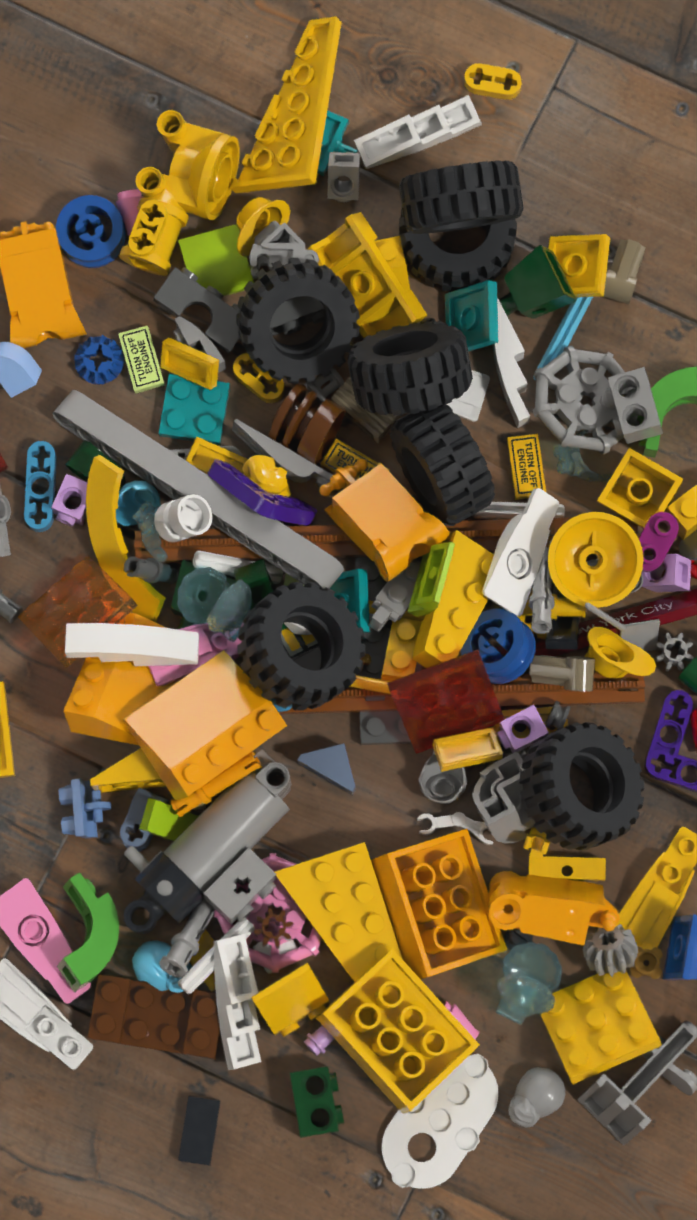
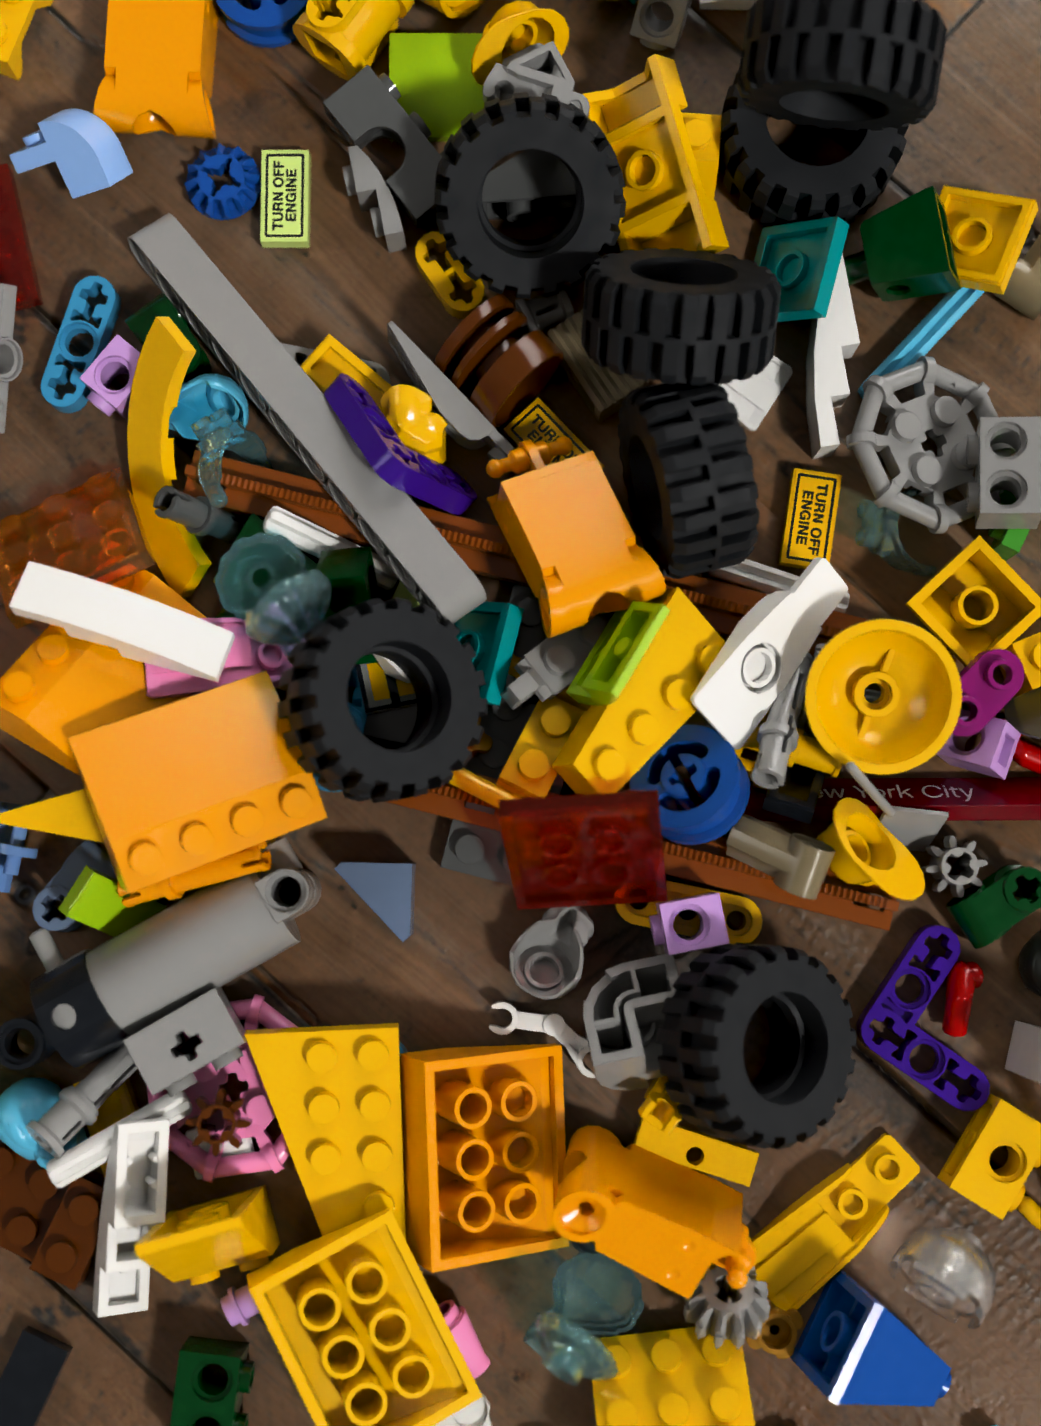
camera: 15 degrees right, 5 degrees up
(183, 518) = (263, 449): white wheel -> none
(189, 363) = (351, 221): yellow tile -> none
(193, 410) = (341, 294): teal plate -> none
(467, 749) = (597, 928): yellow tile -> none
(558, 715) = (750, 917): dark grey bush -> none

